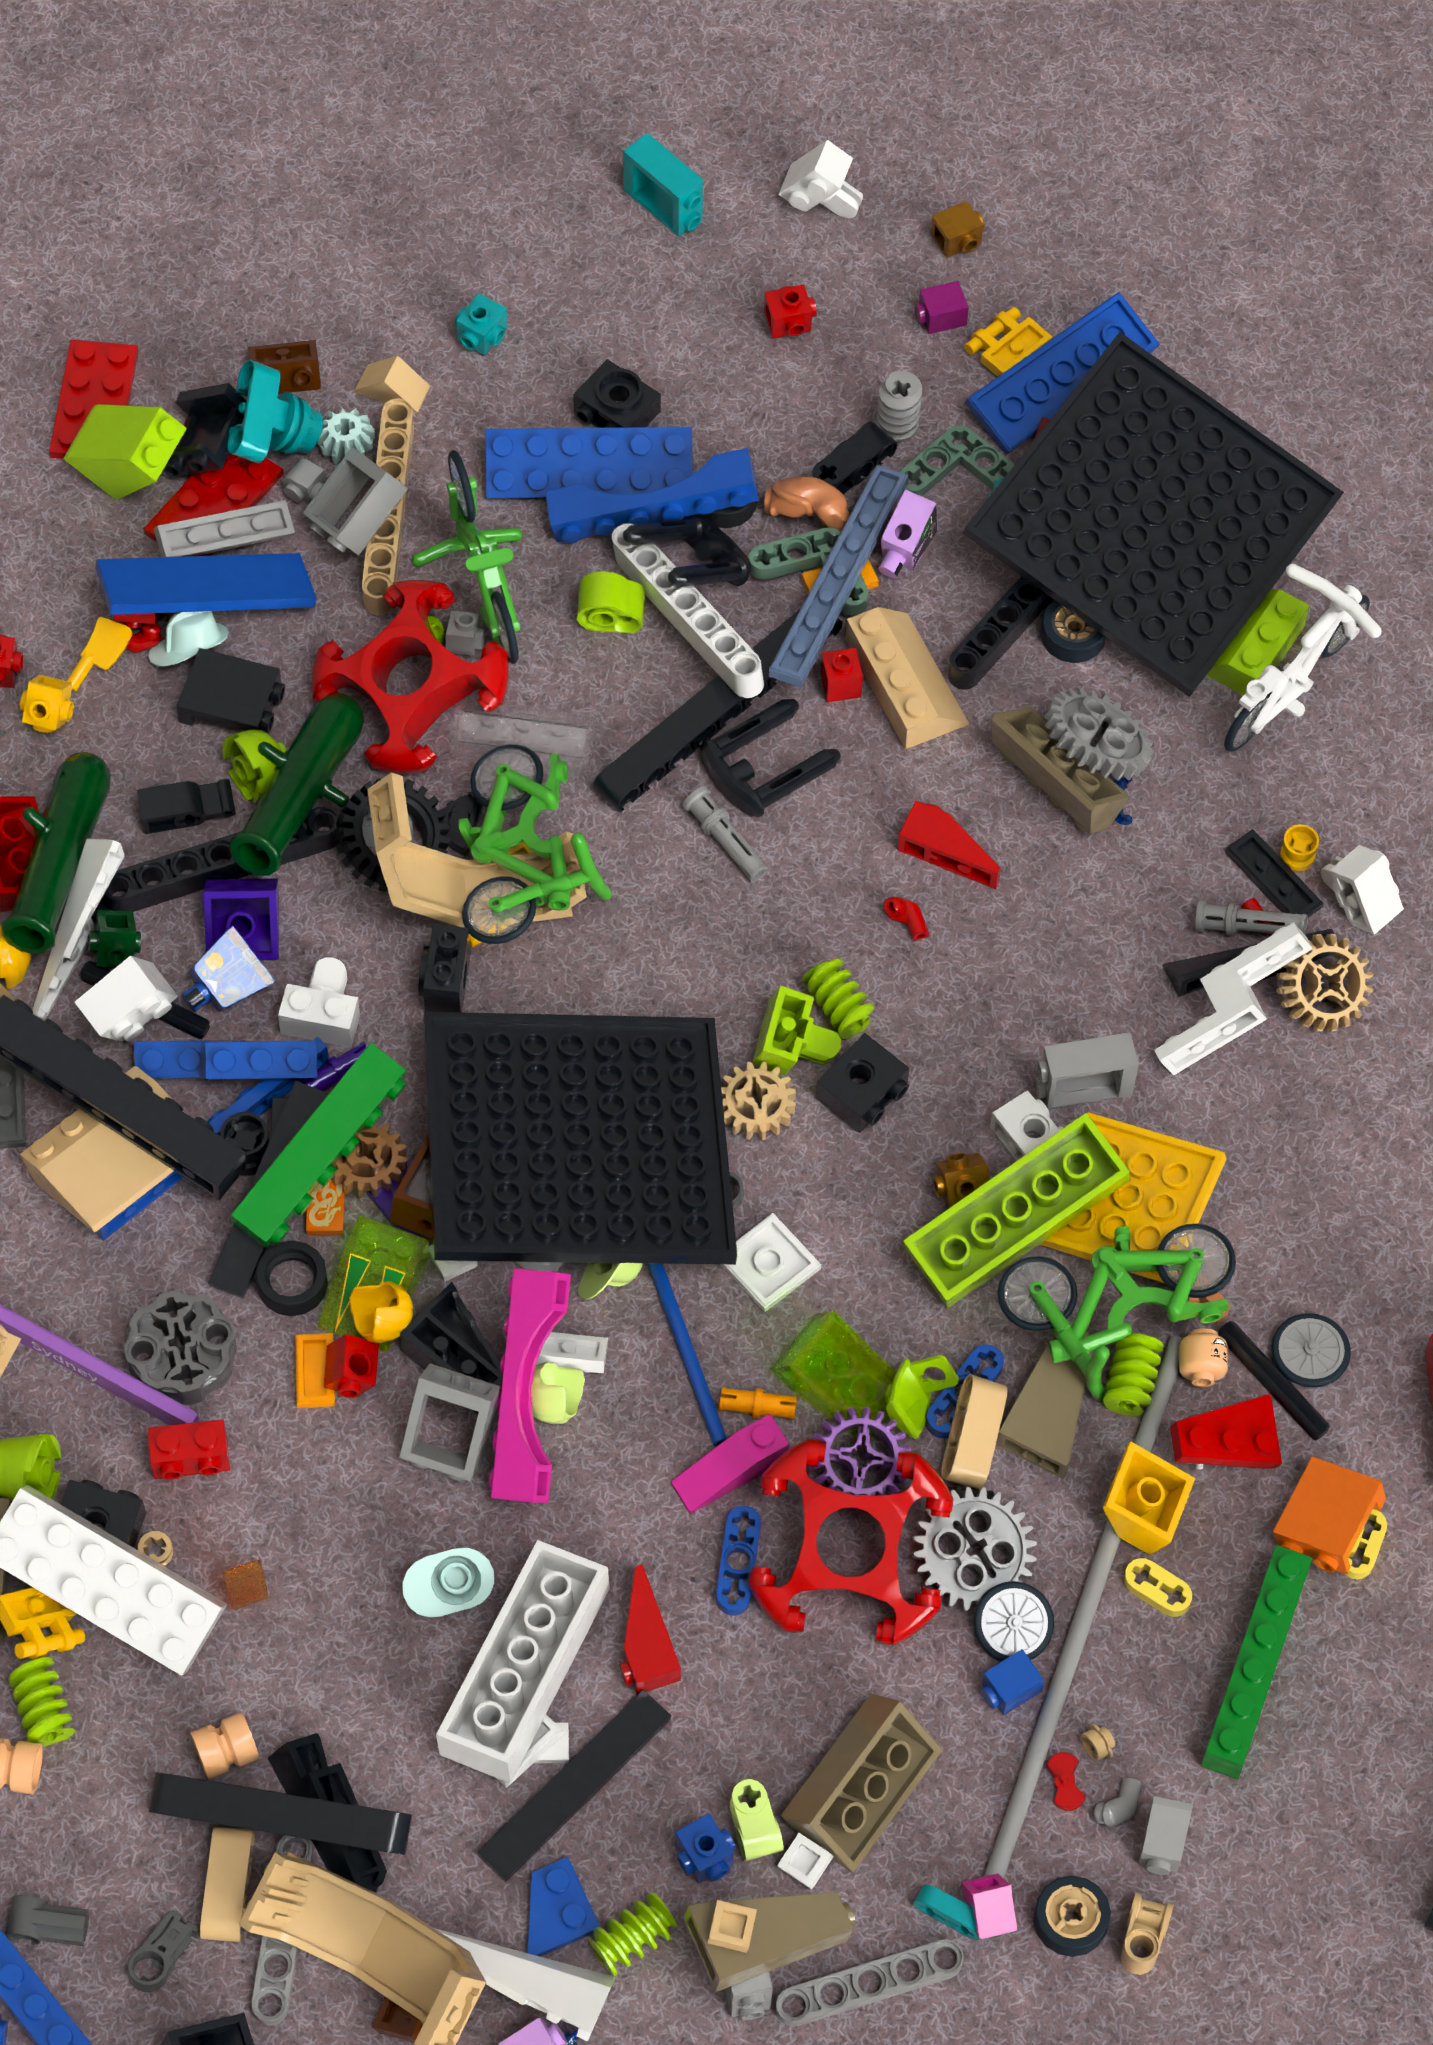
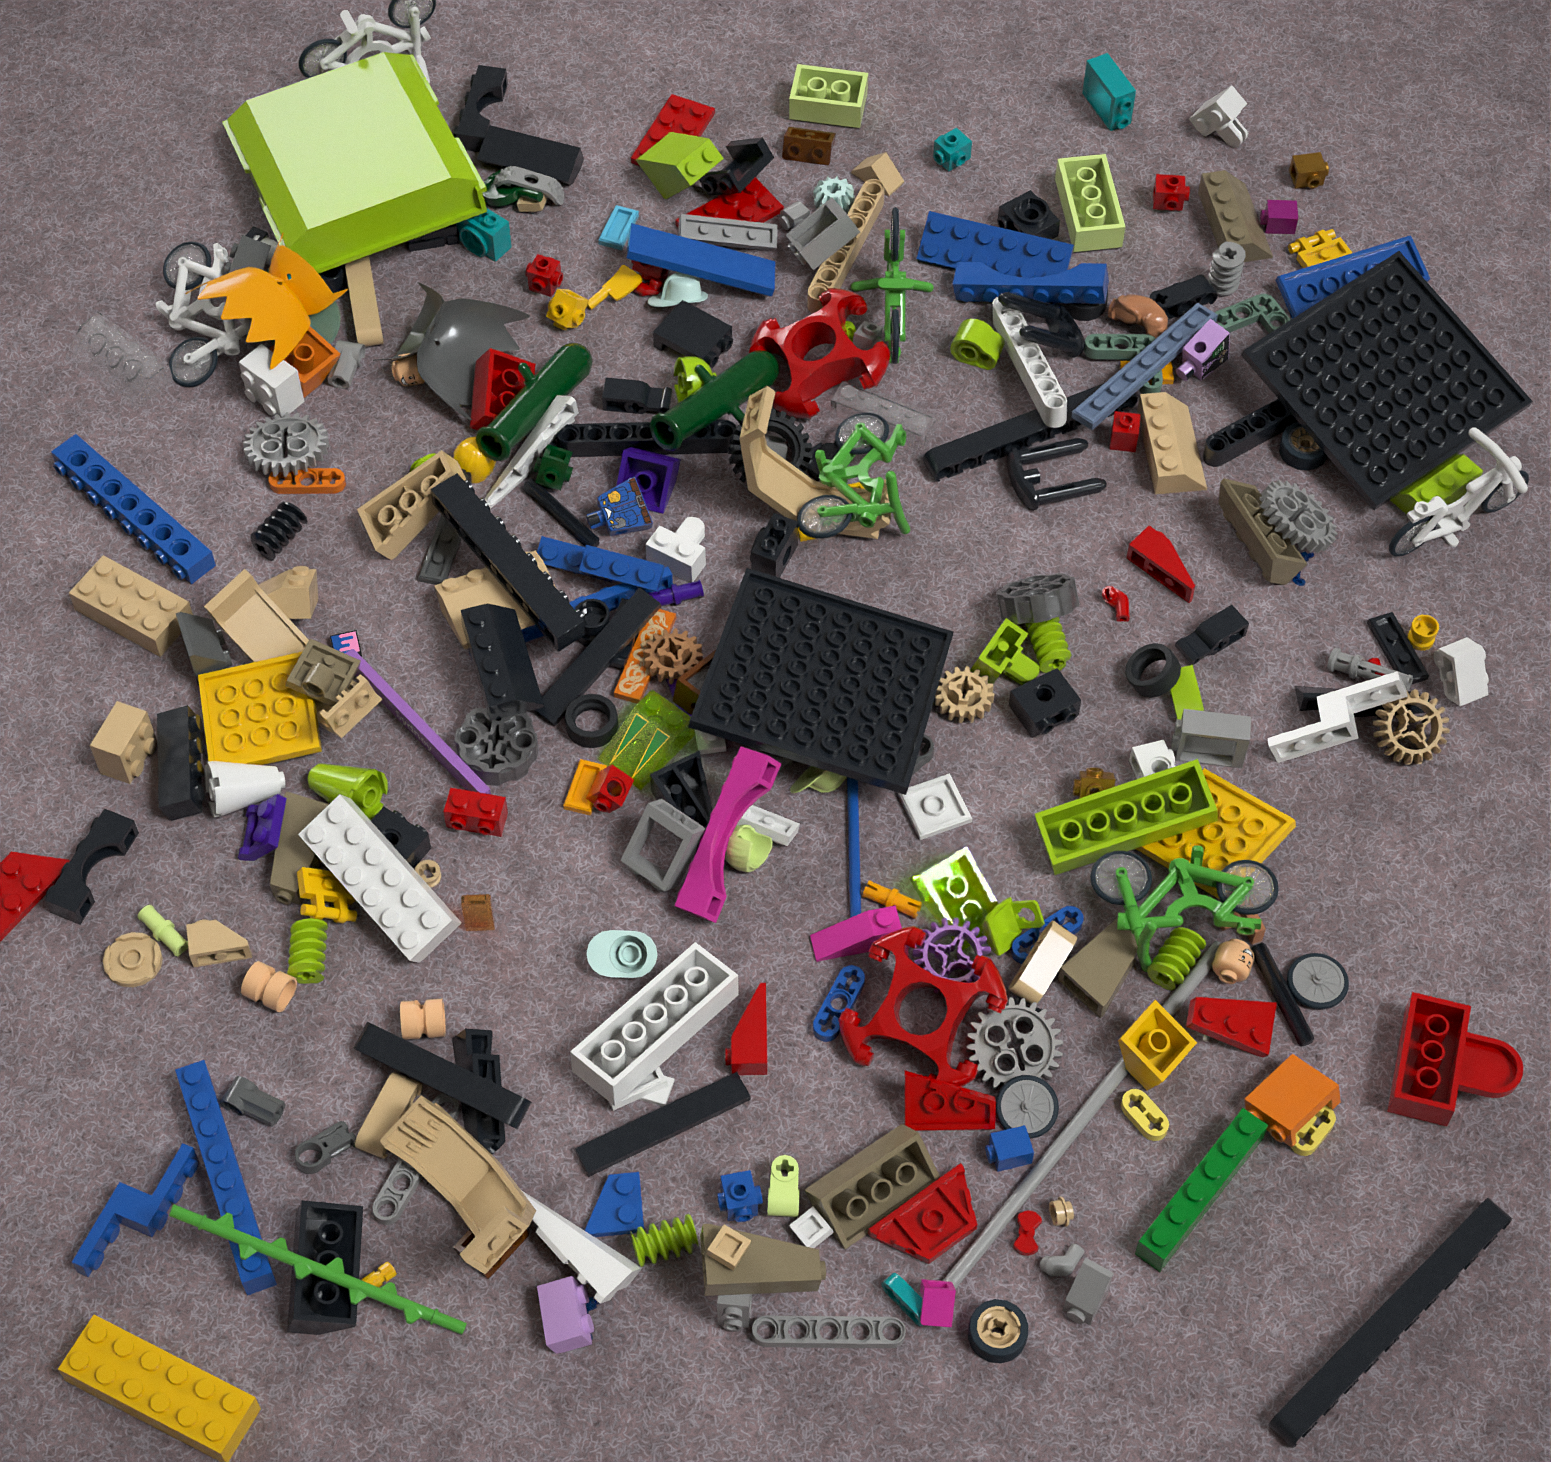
camera: 20 degrees right, 5 degrees down
(69, 560) = (617, 228): none -> medium azure tile
(127, 1000) = (545, 505): white brick -> none
(151, 1236) = (501, 660): none -> black slope
(269, 419) = (790, 174): teal beam -> none
(288, 288) = (828, 96): none -> yellowish green brick
(318, 1146) = (639, 634): green brick -> none
(381, 1311) = (642, 756): yellow hair -> none
(690, 355) = (1090, 203): none -> yellowish green brick
(716, 823) = (1002, 505): light grey pin -> none
(810, 945) = (1038, 598): none -> flat silver connector
(880, 322) = (1233, 214): none -> dark tan slope
(915, 1654) = (945, 1106): none -> red wing
(945, 1802) = (931, 1219): none -> red wing
(967, 982) = (1163, 681): none -> black tyre
(1031, 1016) = (1186, 692): none -> lime slope
(1042, 927) = (1213, 635): none -> black piece
(1146, 1928) = (1052, 1357): tan piece -> none

